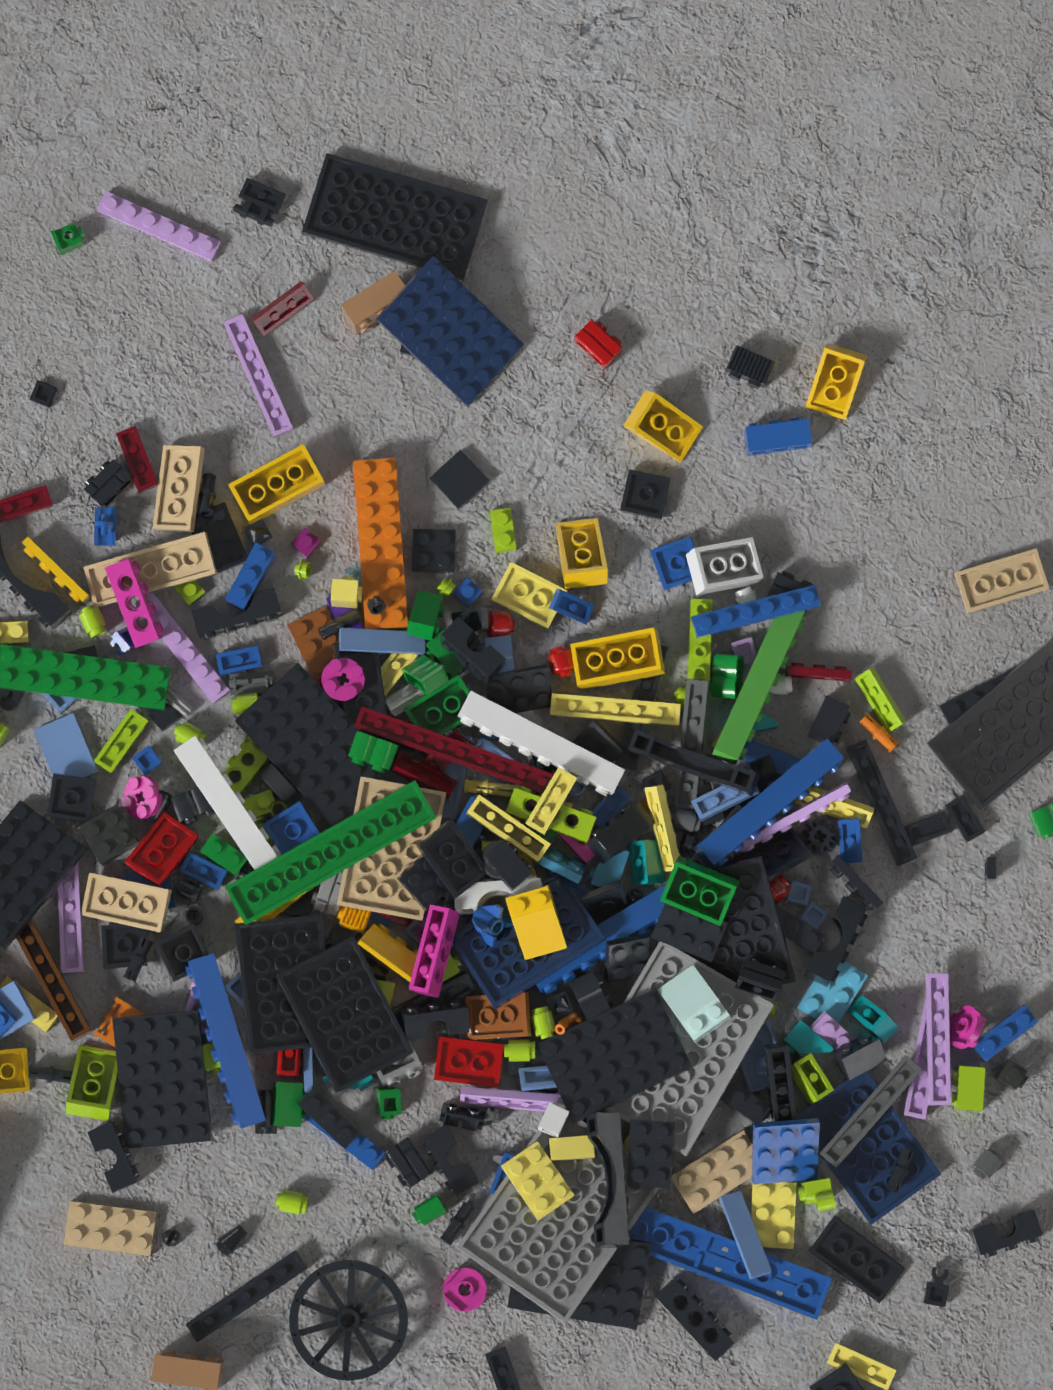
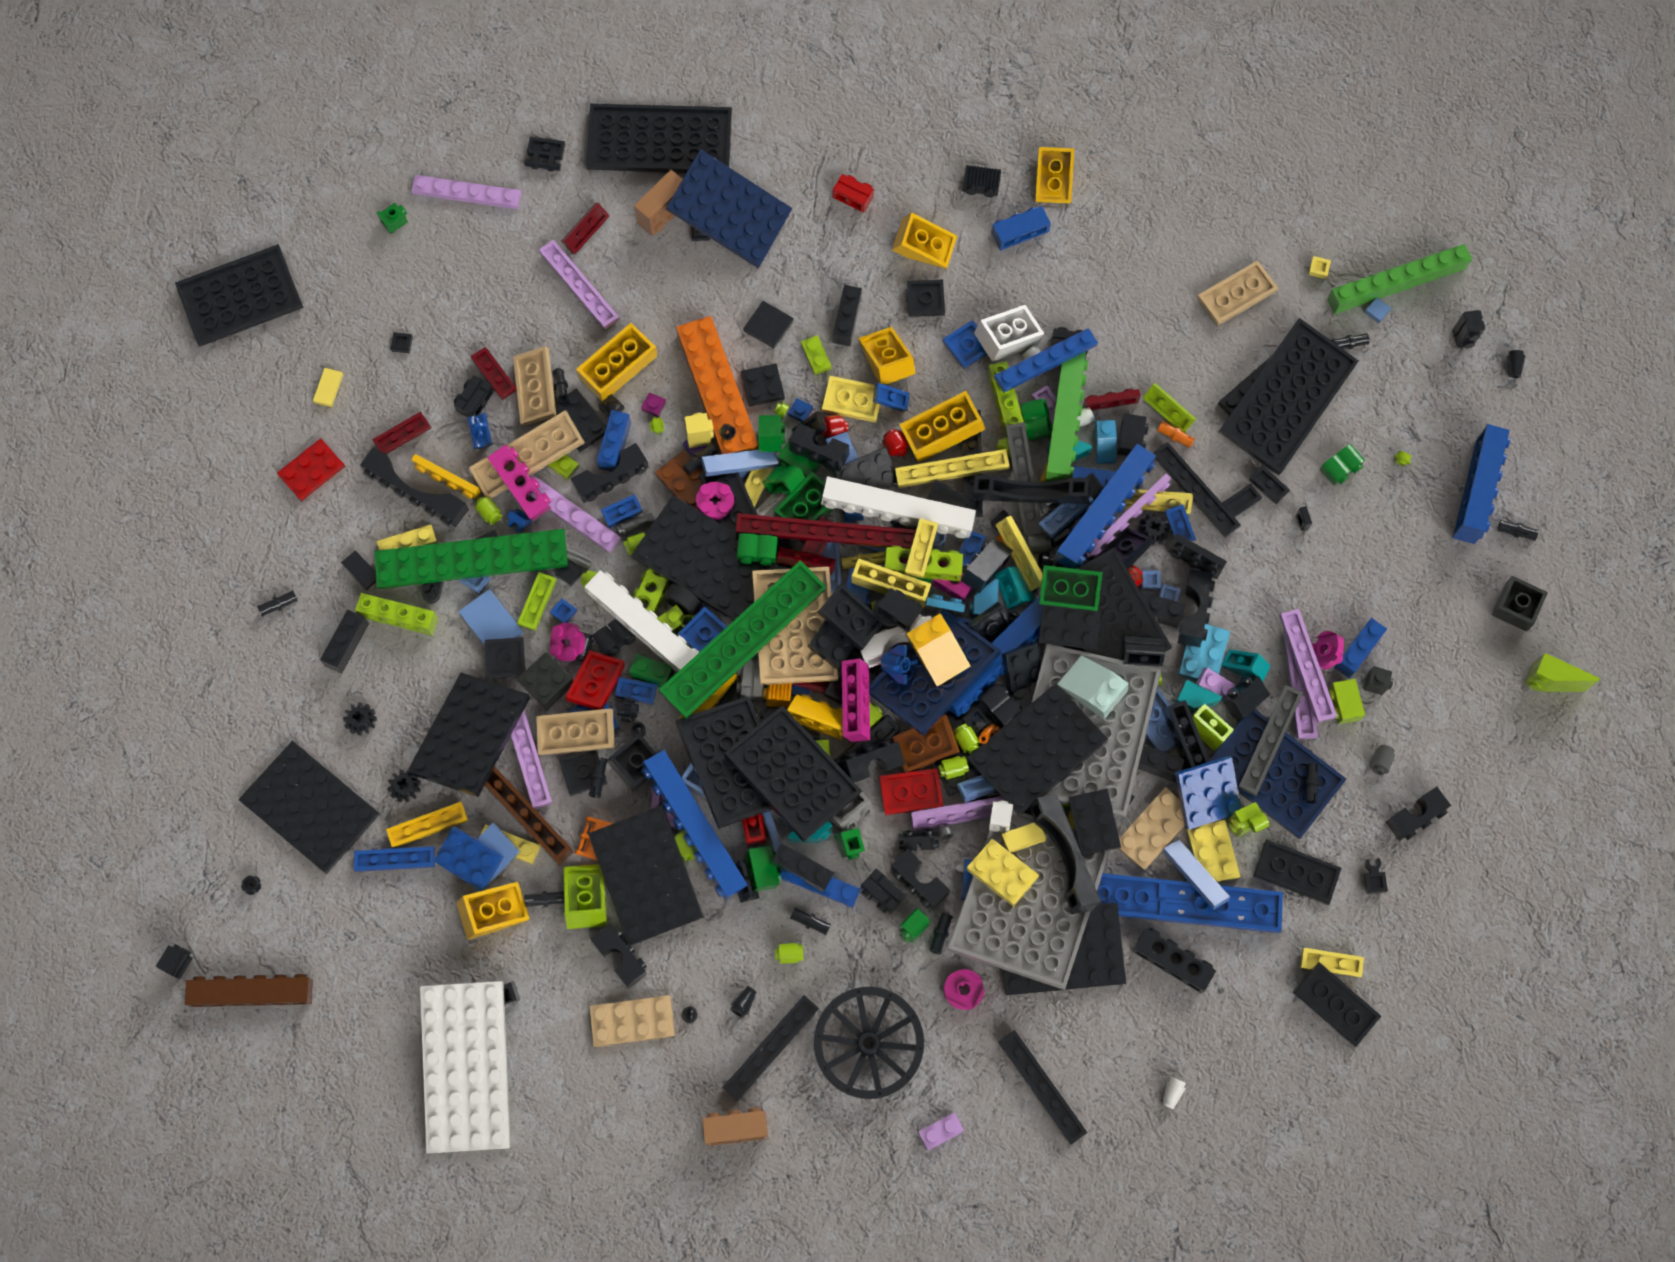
camera: 15 degrees left, 10 degrees down
(323, 1173) = (810, 921): none -> black pin
(550, 494) = (847, 315): none -> black brick
(796, 721) = (1105, 441): none -> dark azure slope

